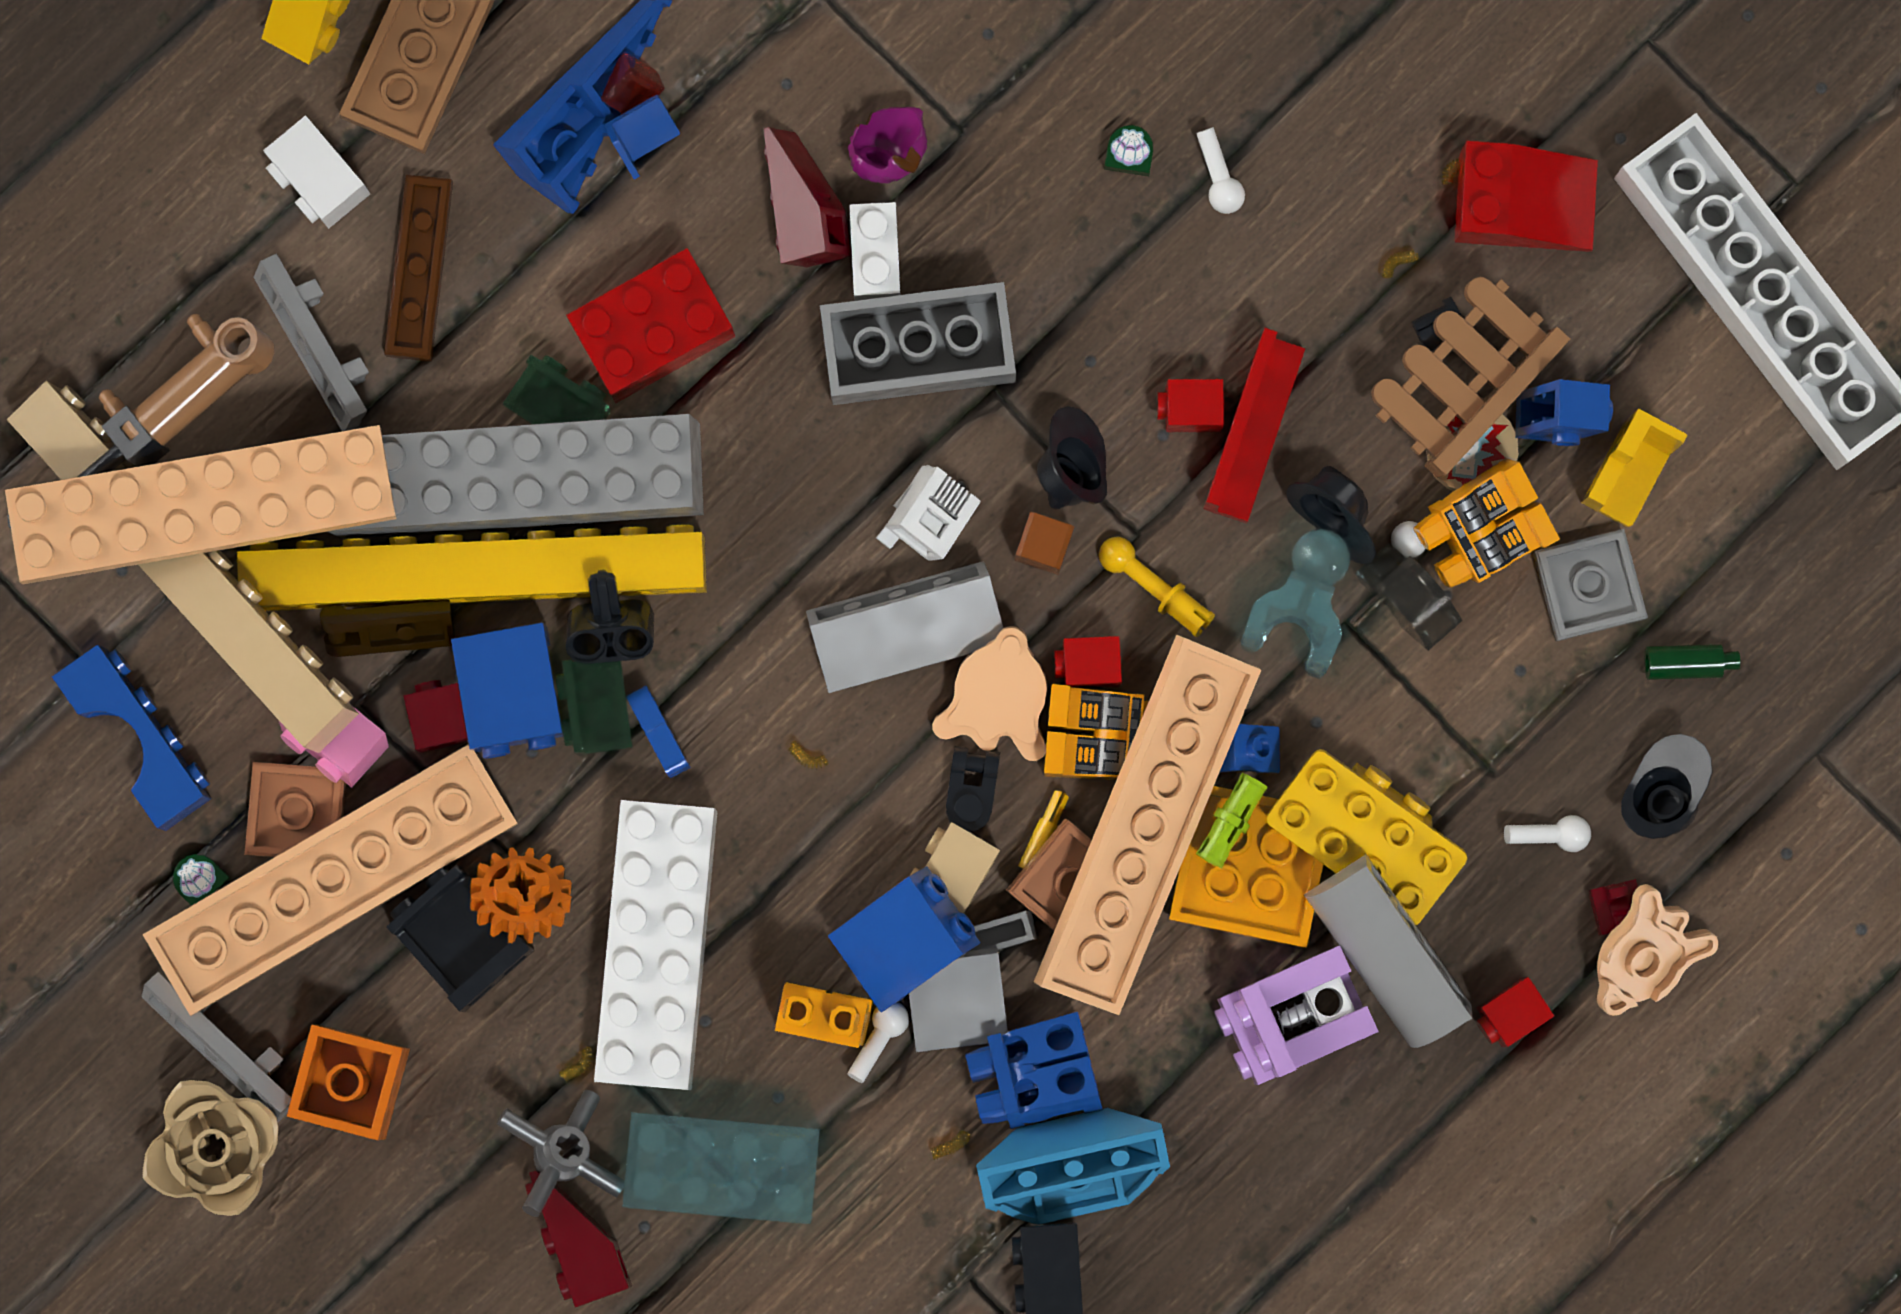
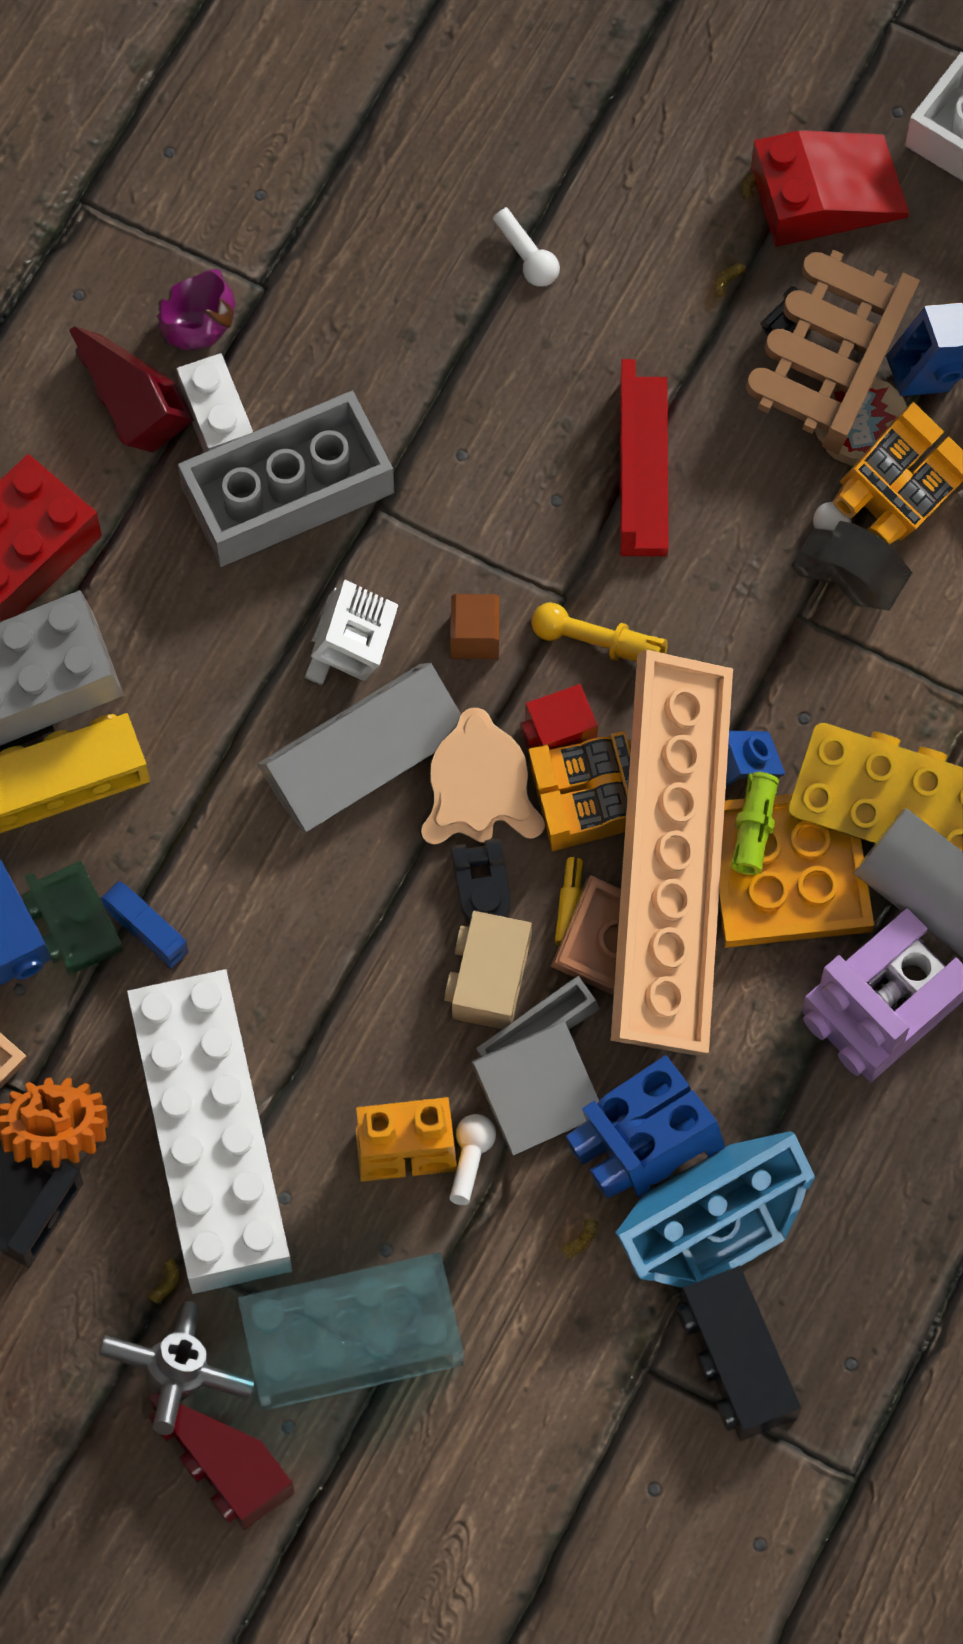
camera: 20 degrees left, 15 degrees down
(609, 625) = (59, 826): black beam -> none
(803, 755) = (302, 905): clear yellow leg -> none
(904, 938) = (462, 1036): blue panel -> none
(1074, 462) = (476, 544): black piece -> none
(1129, 151) = (434, 255): tile -> none
(1192, 405) = (576, 458): red brick -> none
(1305, 599) = (752, 602): clear light blue piece -> none
(1337, 505) = (752, 512): black piece -> none

